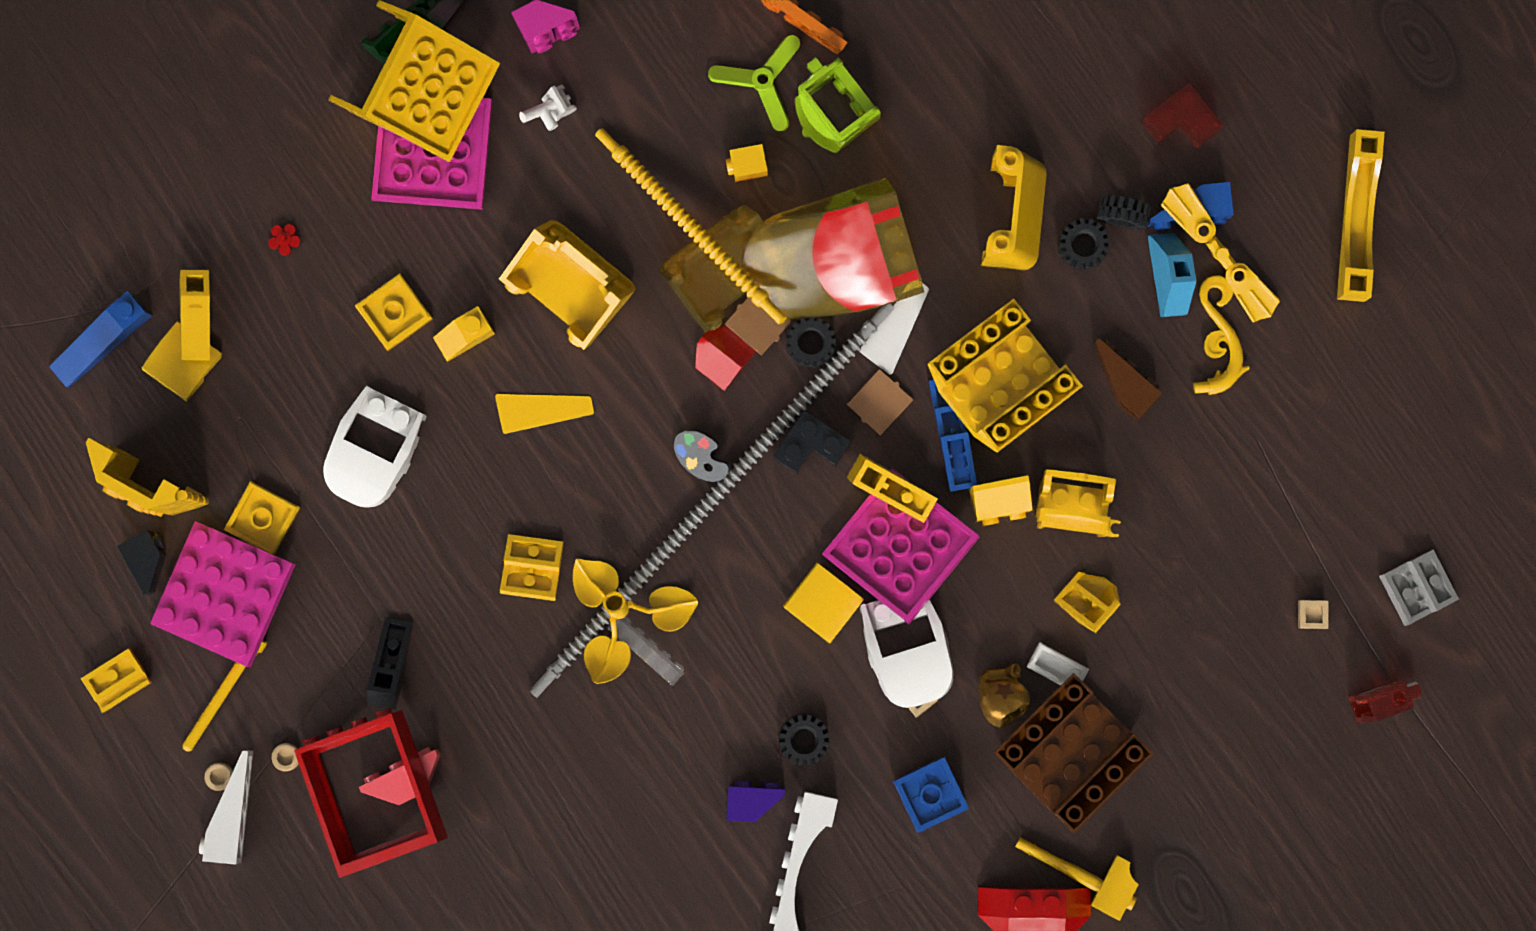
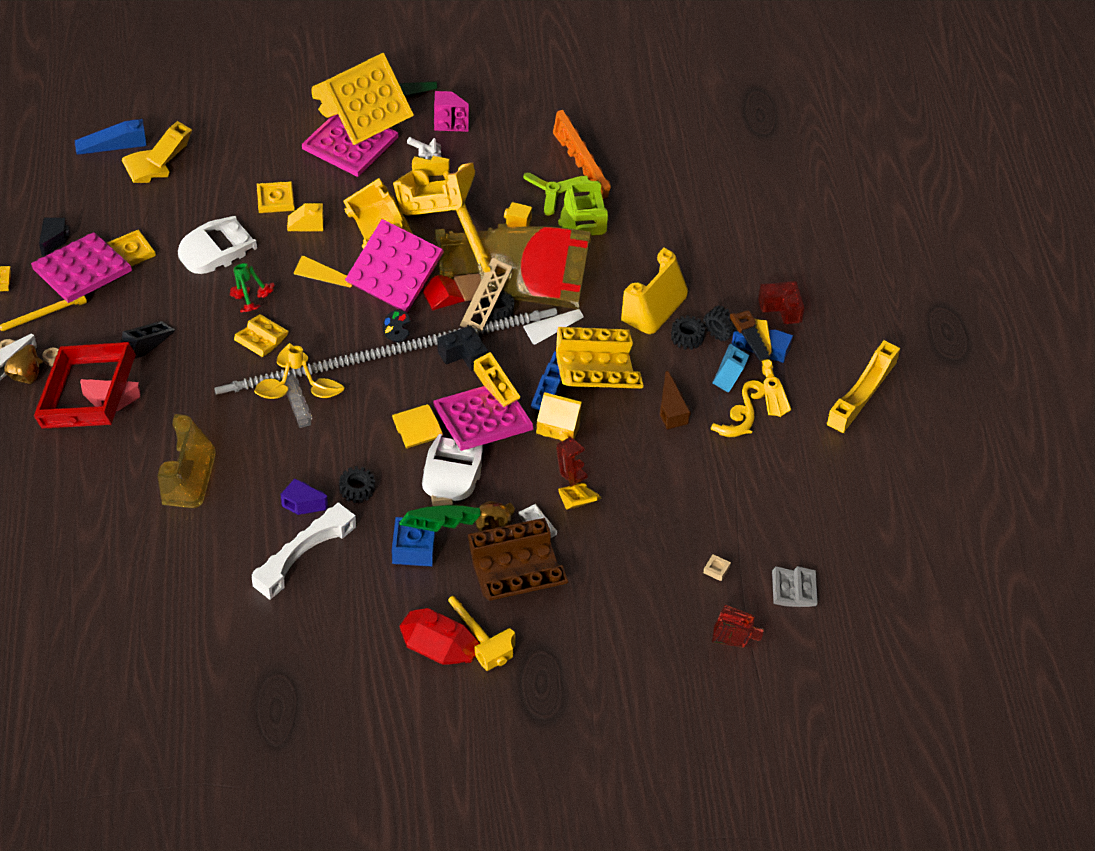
camera: 20 degrees right, 35 degrees down
(113, 471) = (81, 190): yellow slope -> none
(268, 805) = (24, 365): none -> pearl gold piece
(284, 239) = (242, 144): red plant -> none
(456, 508) = (242, 274): none -> plant
(582, 130) = (432, 167): none -> yellow slope
(592, 837) = (186, 481): none -> clear yellow windscreen
(613, 193) = (420, 196): none -> yellow windscreen
(641, 361) = (394, 265): none -> dark pink plate
(785, 352) = (479, 295): none -> tan fence
(880, 402) = (518, 353): medium nougat piece -> none
(949, 763) = (436, 516): none -> green slope
(1056, 563) = (568, 466): none -> clear red window
(1075, 506) = (599, 442): yellow animal -> none
(1180, 222) = (750, 333): none -> piece

